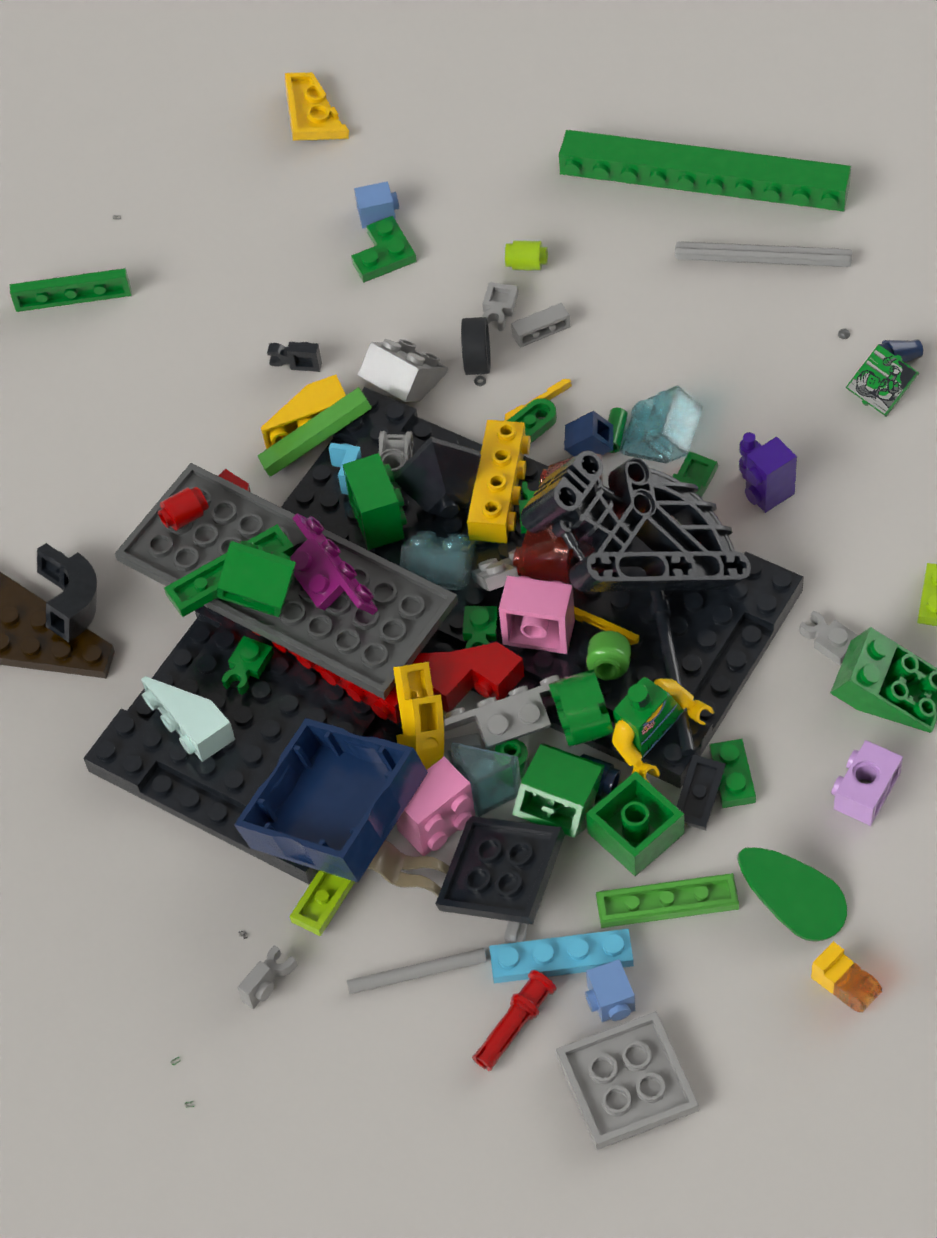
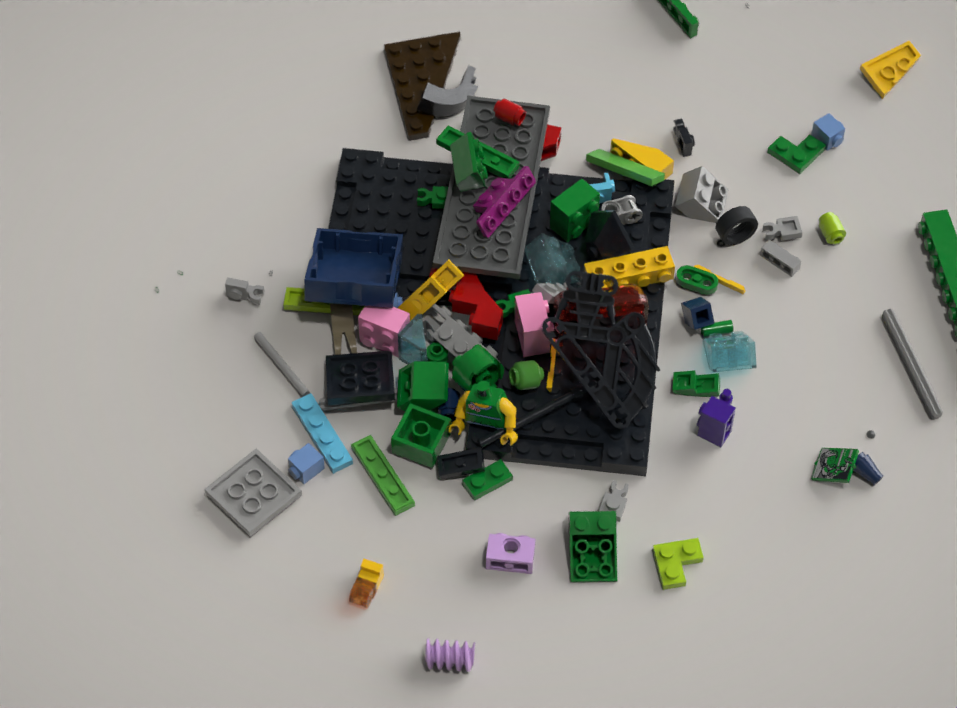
camera: 60 degrees right, 0 degrees up
(193, 717) = (382, 187): light aqua slope -> none
(522, 1008) = (278, 424): red pin -> none
(795, 893) = (411, 537): green shield -> none

